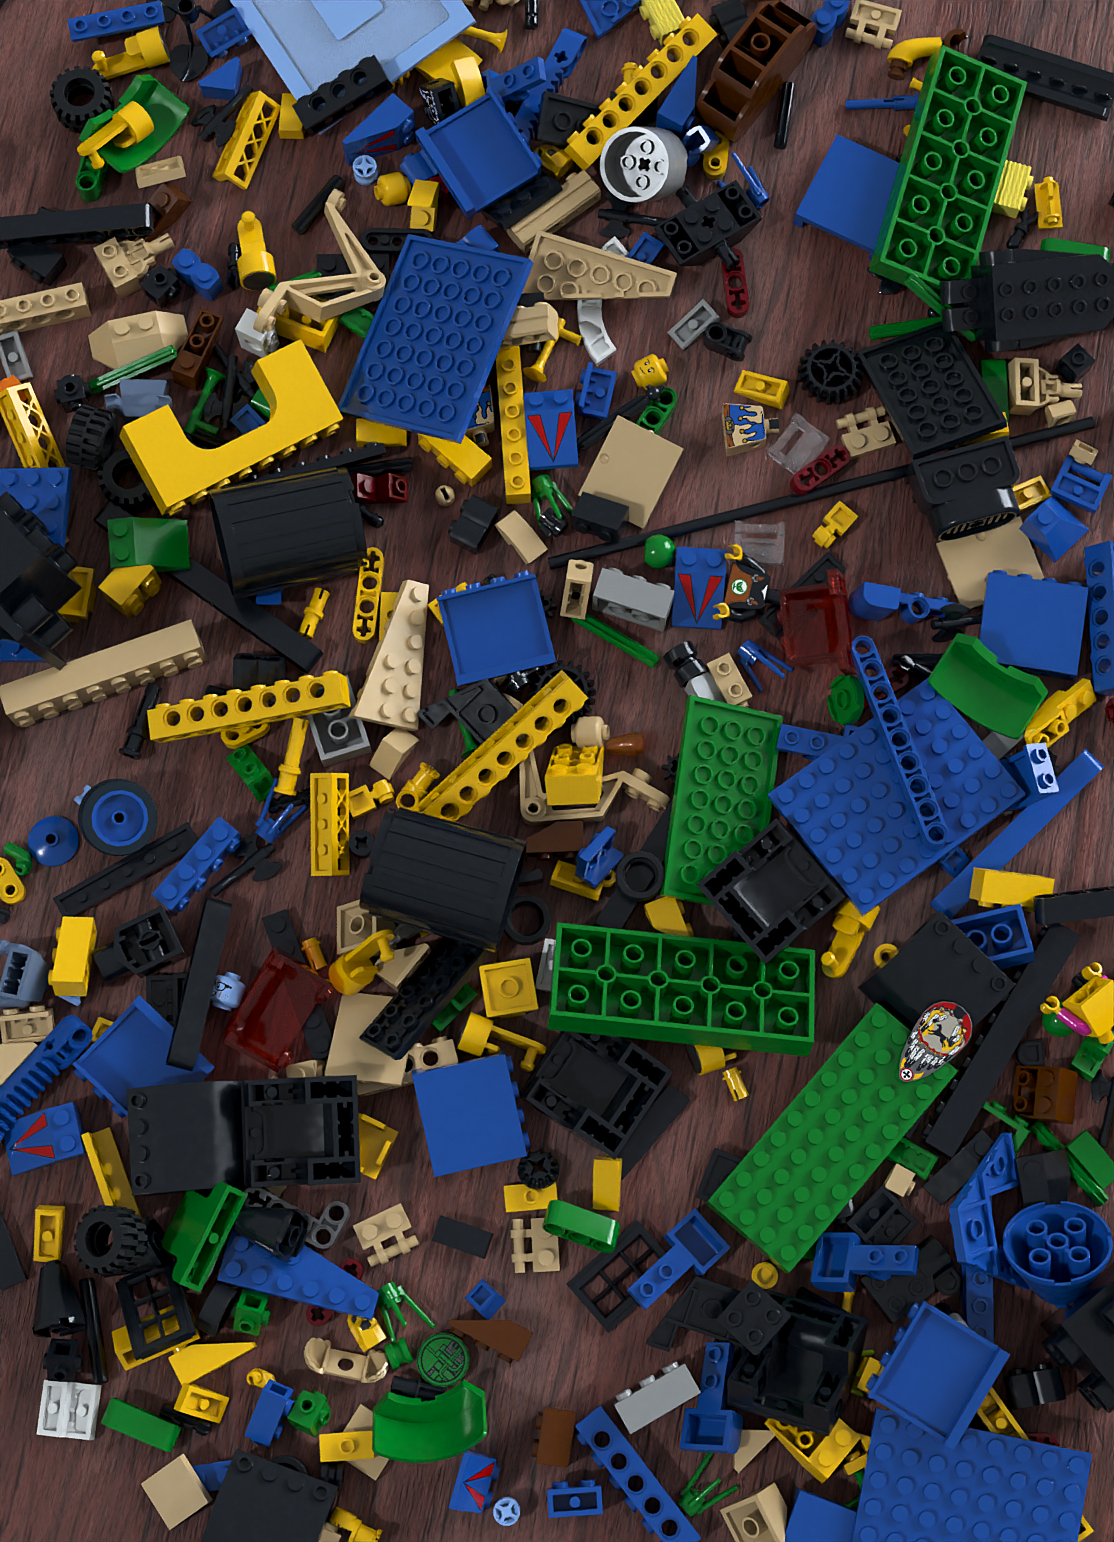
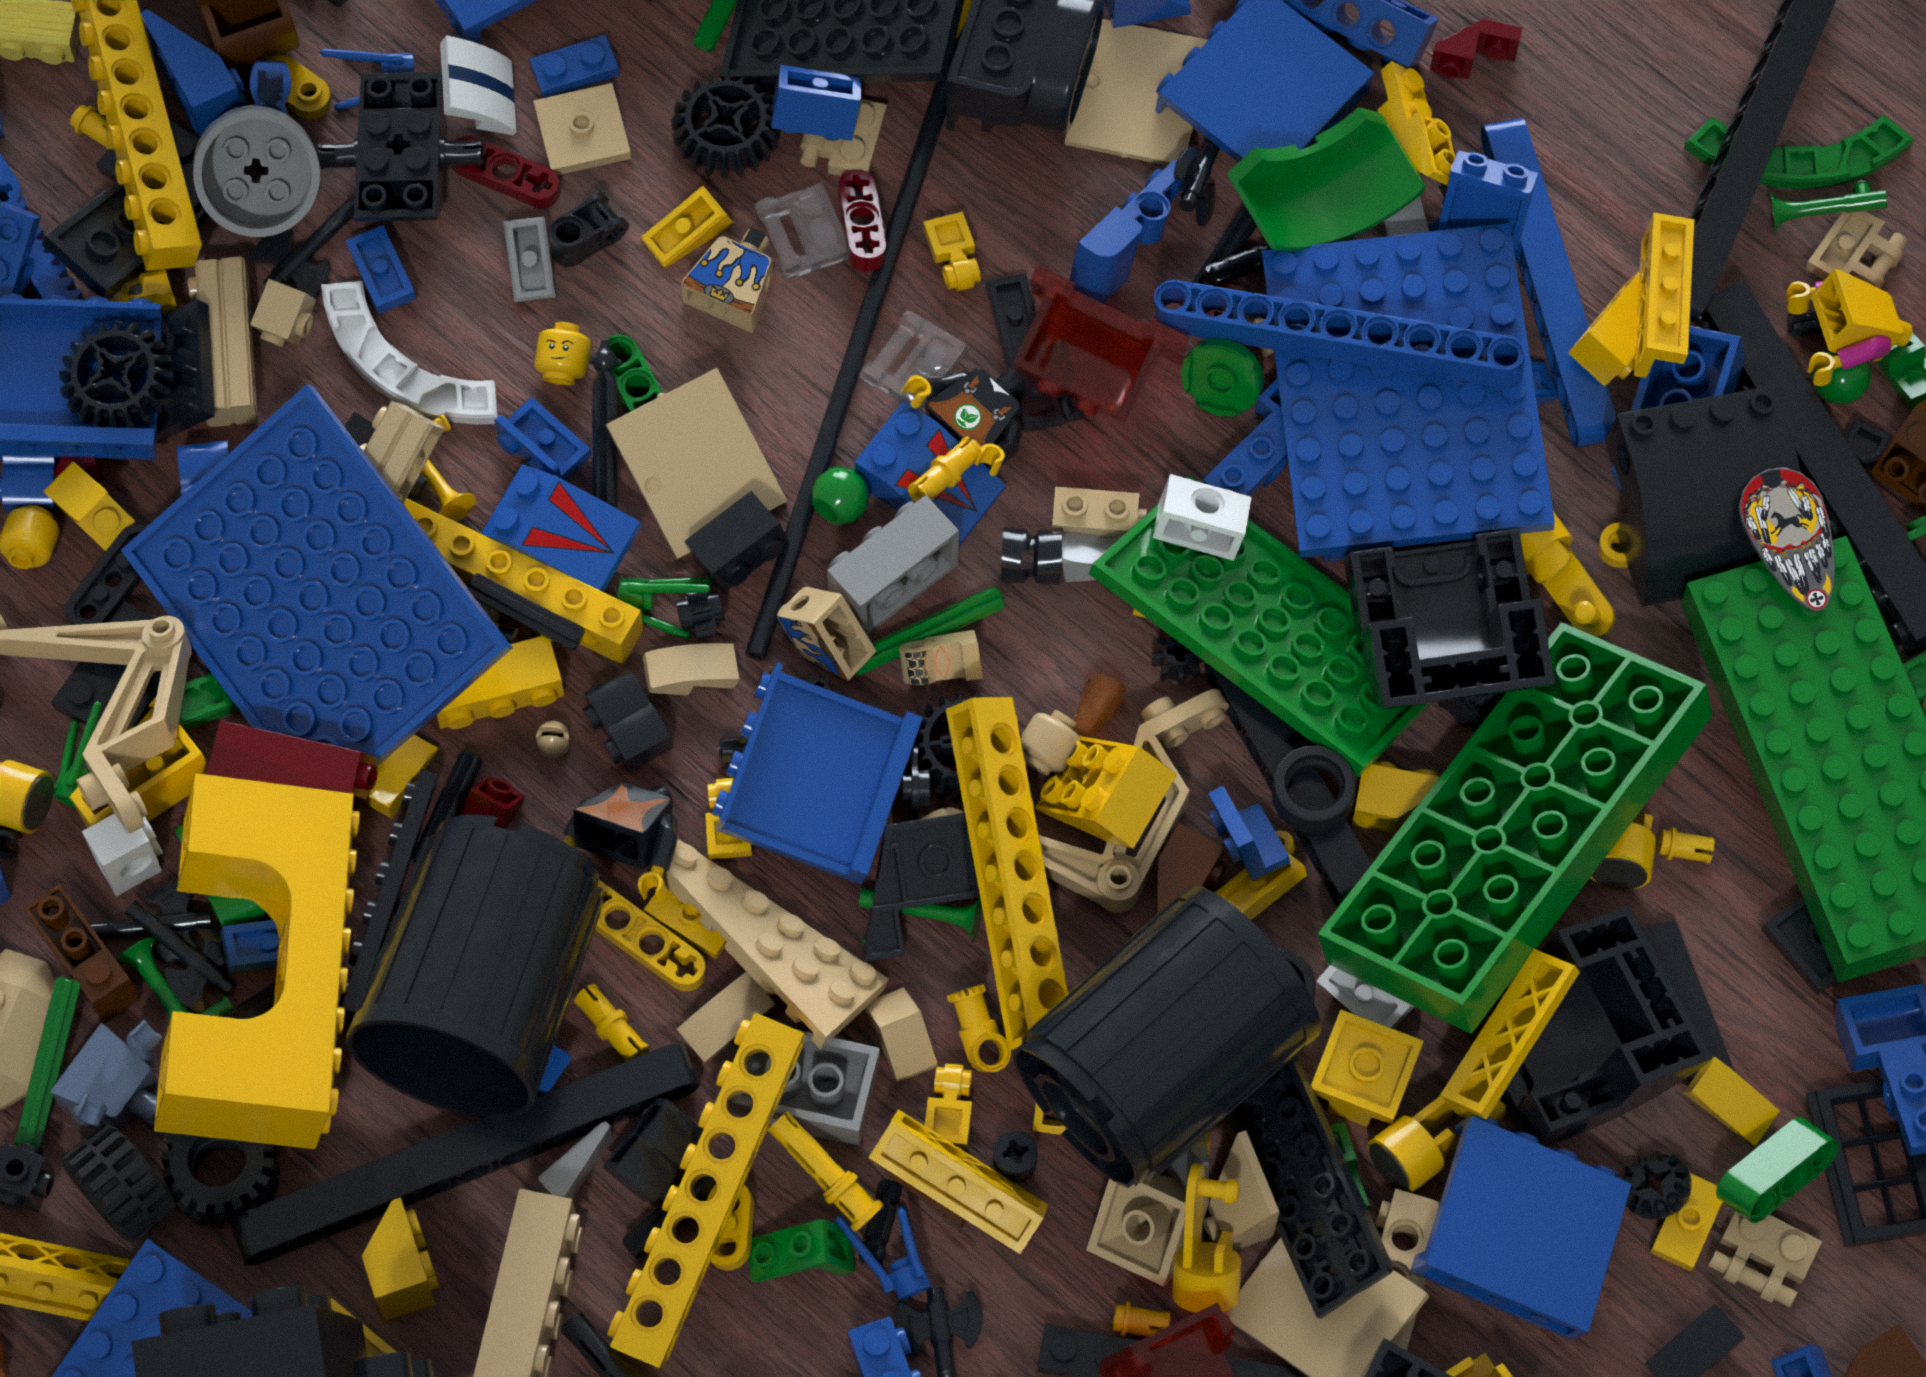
camera: 60 degrees left, 10 degrees down
(149, 542) = (349, 1193): green slope -> none
(227, 640) = (573, 1168): none -> light grey slope
(343, 376) = (290, 760): none -> dark red slope
(346, 663) = (720, 1018): none -> tan slope
(414, 558) = (631, 828): none -> black torso
(476, 163) = (129, 366): none -> black gear
(494, 439) = (525, 612): none -> black axle
(560, 1048) = (1509, 1035): none -> yellow fence
(583, 272) = (367, 335): tan wing -> none
(585, 227) = (283, 314): none -> tan brick
(602, 654) = (941, 658): none -> tan leg
(699, 593) = (945, 470): none -> yellow pin
(744, 727) = (1202, 517): none -> white brick
(752, 654) = (1070, 462): blue plant -> none
(770, 239) = (478, 85): none -> white slope
(783, 305) = (582, 129): none -> tan plate
(816, 279) = (574, 67): none -> blue plate
(864, 406) = (816, 103): none -> blue brick
(1035, 897) = (1664, 292): none -> yellow fence

